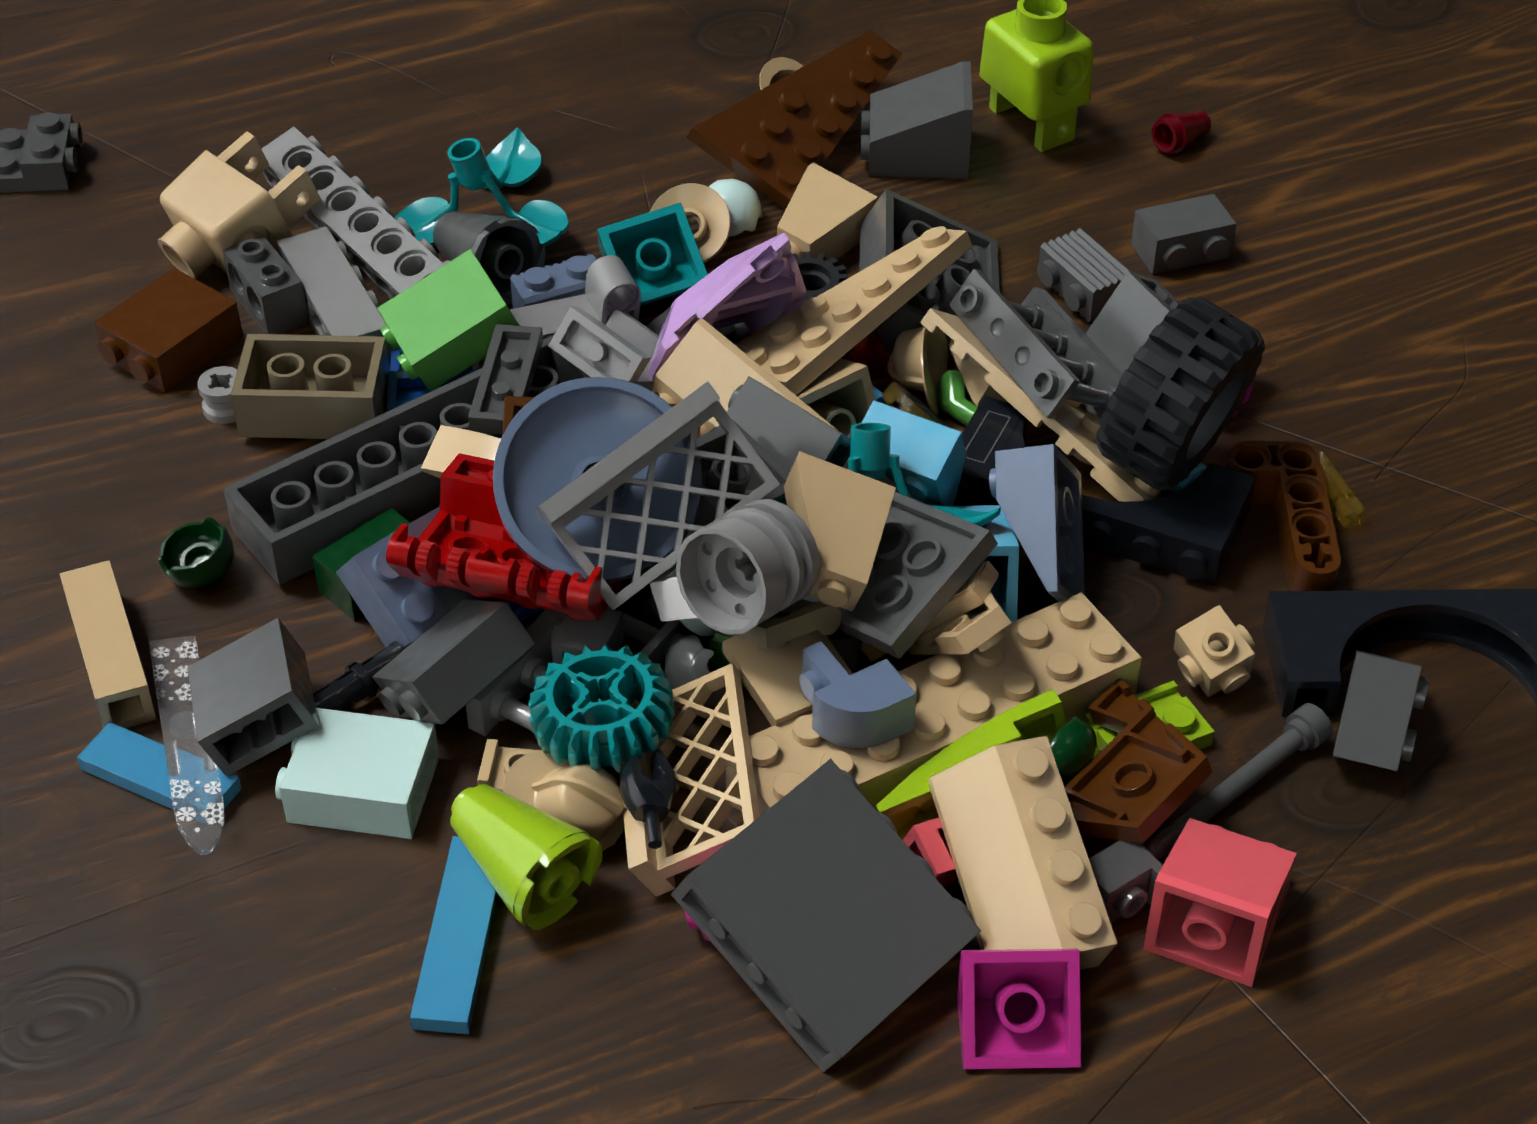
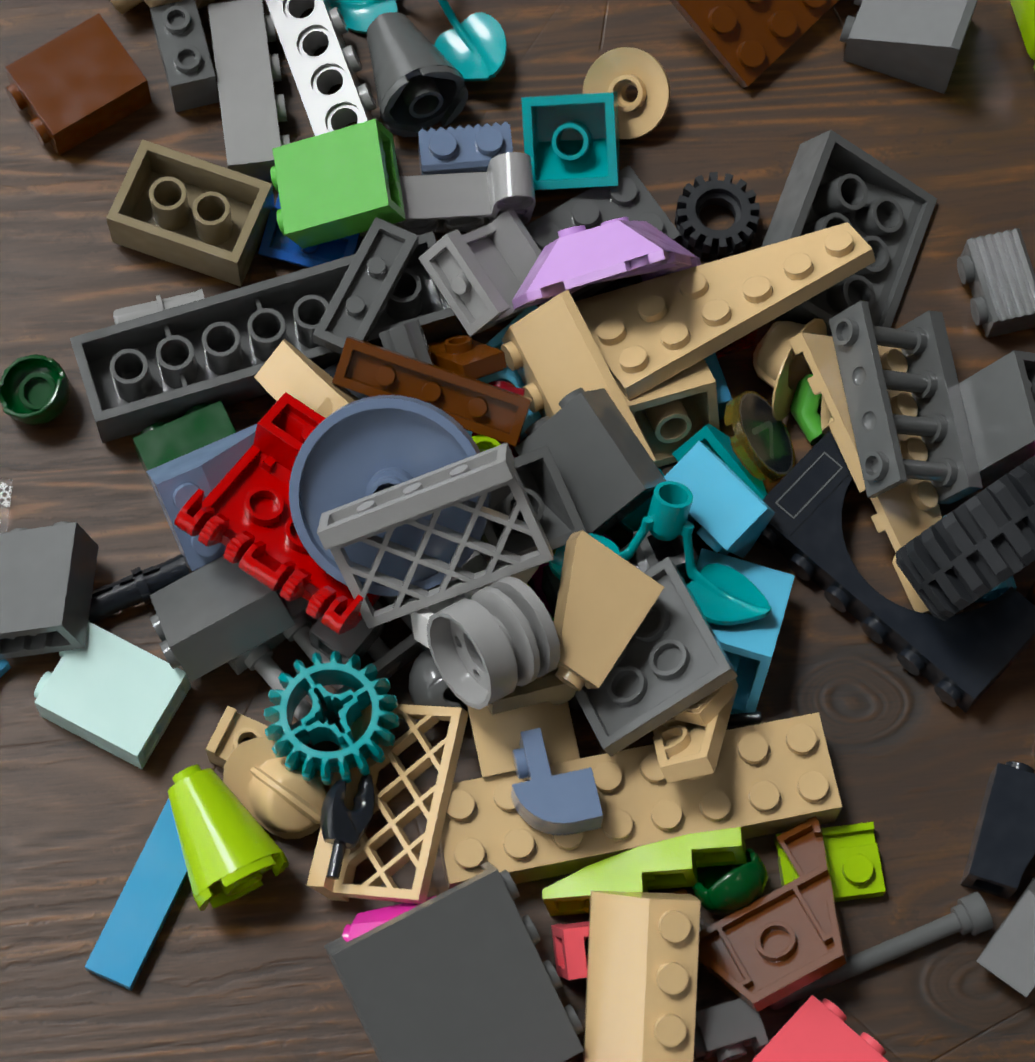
camera: 15 degrees right, 25 degrees up
(215, 389) = (100, 174): light grey wheel -> none
(742, 204) = (687, 73): light aqua hair -> none
(825, 214) = (764, 124): tan slope -> none
(1044, 507) = (812, 627): sand blue slope -> none
(1214, 652) = (923, 793): tan brick -> none

